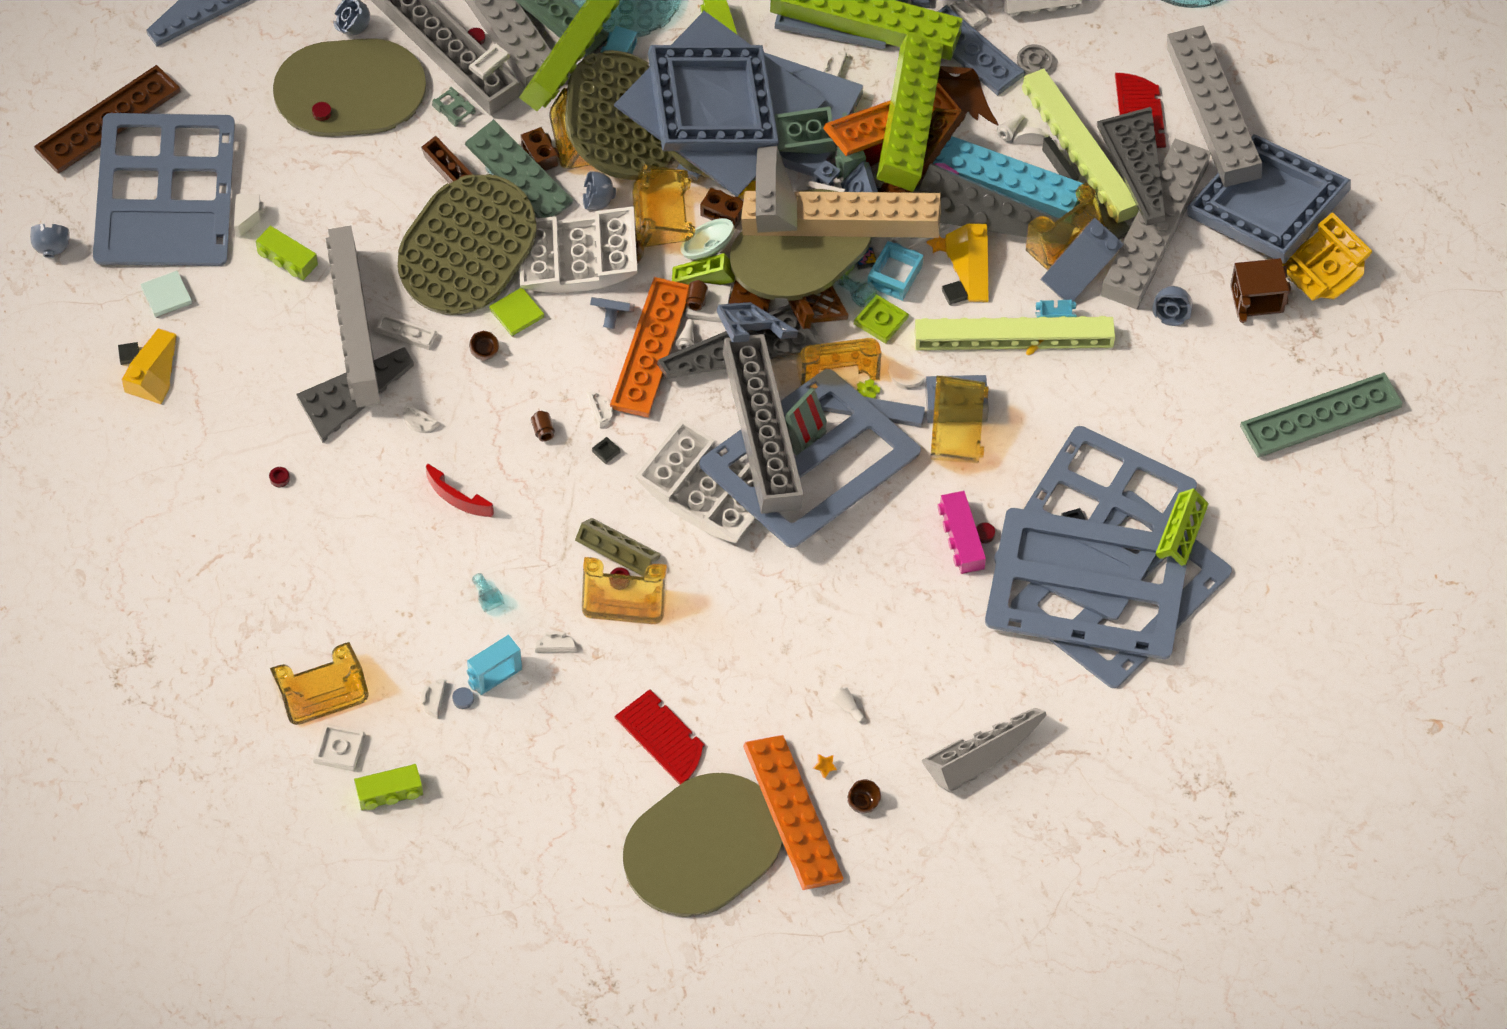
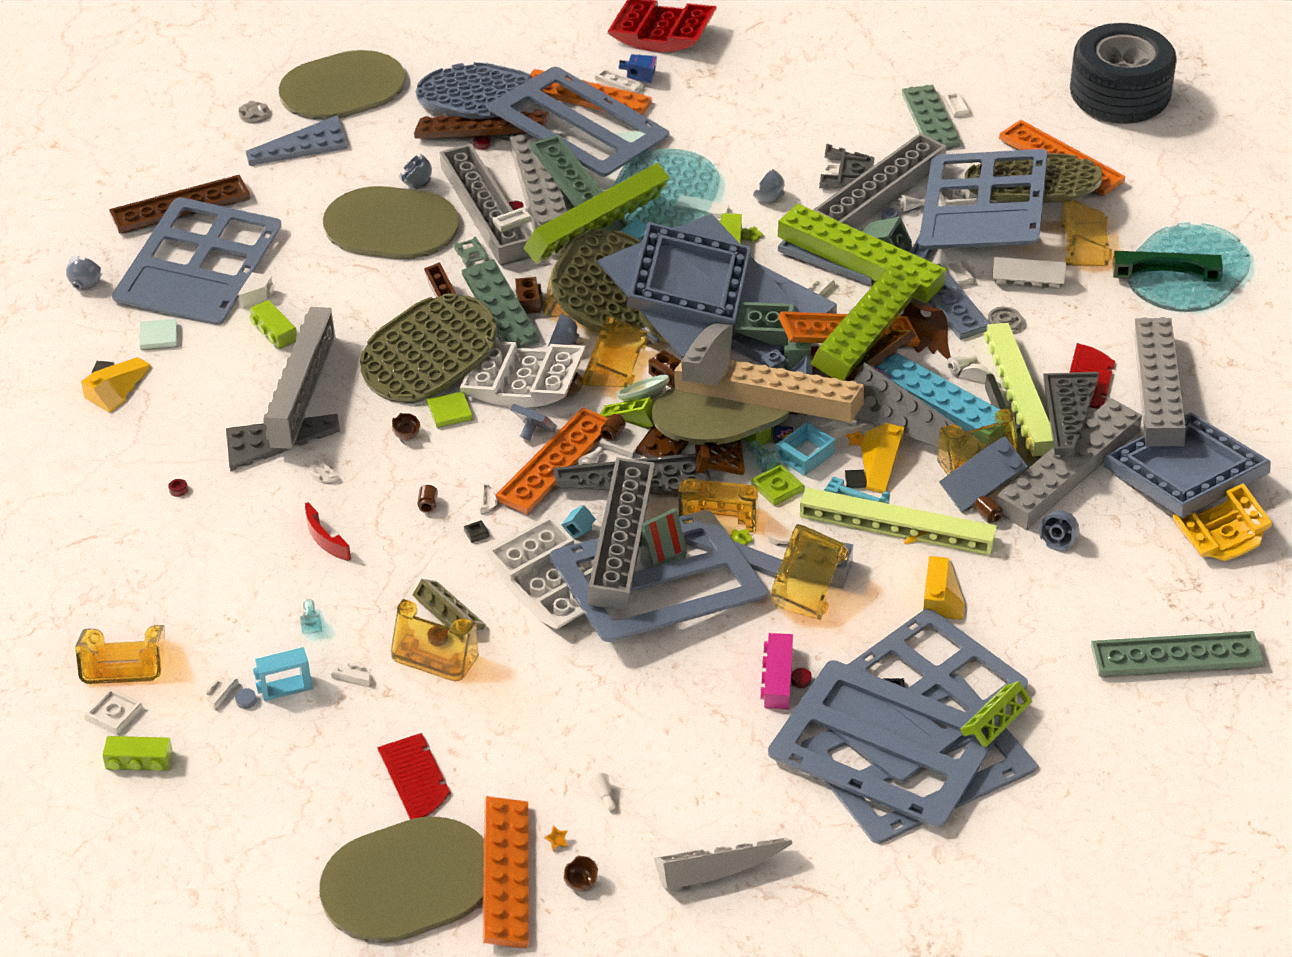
camera: 20 degrees right, 15 degrees down
(321, 111) = (356, 231): dark red tile -> none
(405, 331) = (345, 403): white tile -> none
(706, 415) = (578, 522): none -> medium azure brick
(739, 11) = (751, 233): none -> lime plant
(742, 317) = (638, 448): sand blue wing -> none
(938, 307) = (837, 486): none -> medium azure hinge
(1047, 309) = (953, 509): medium azure hinge -> none
(1081, 399) = (942, 589): none -> yellow wedge
(1096, 297) = (988, 509): none -> reddish brown brick
(1259, 288) = (1151, 533): reddish brown container -> none

